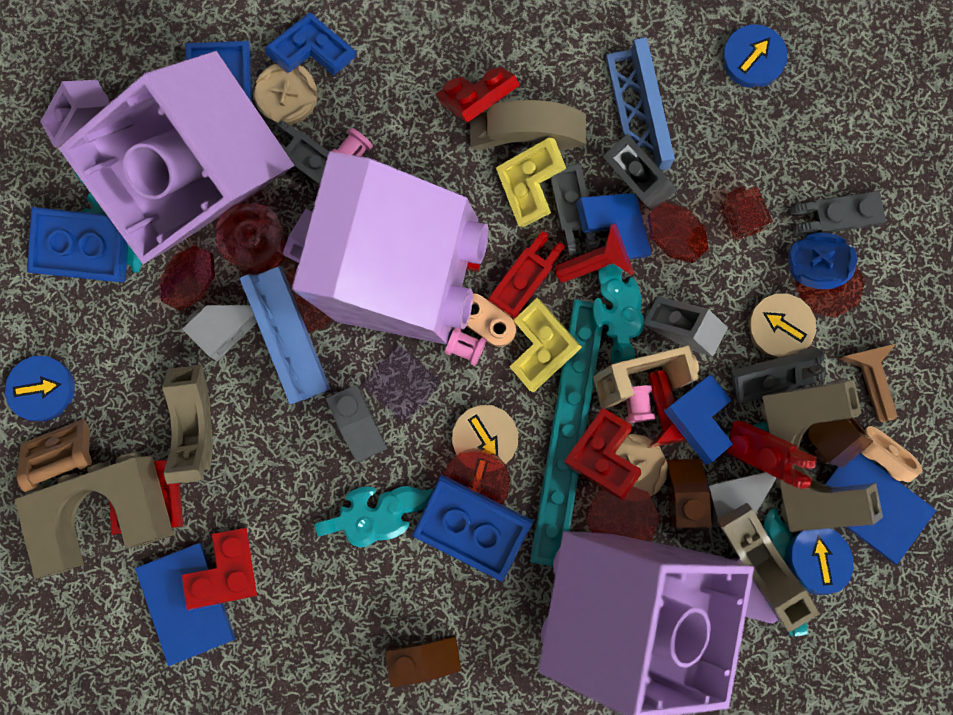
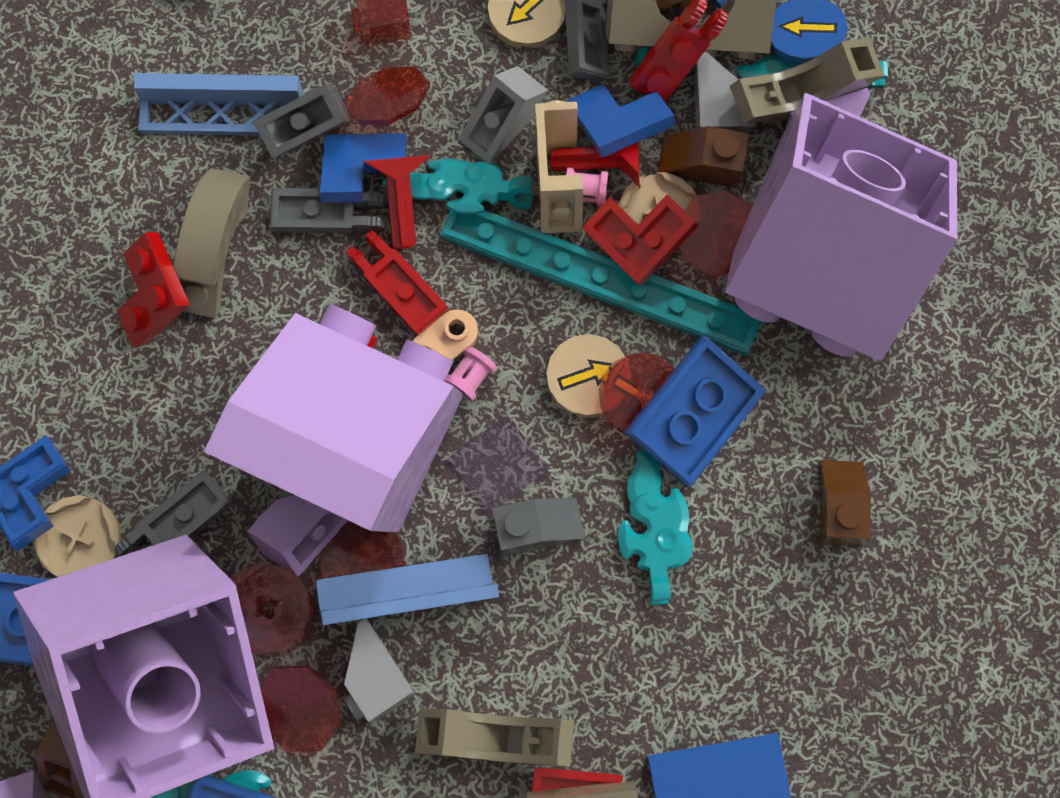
camera: 80 degrees left, 5 degrees down
(231, 578) = (699, 719): red plate -> none
(354, 144) = (177, 462): bright pink bush -> none
(522, 178) = (270, 259): light yellow plate -> none
(550, 346) = (491, 270): light yellow plate -> none

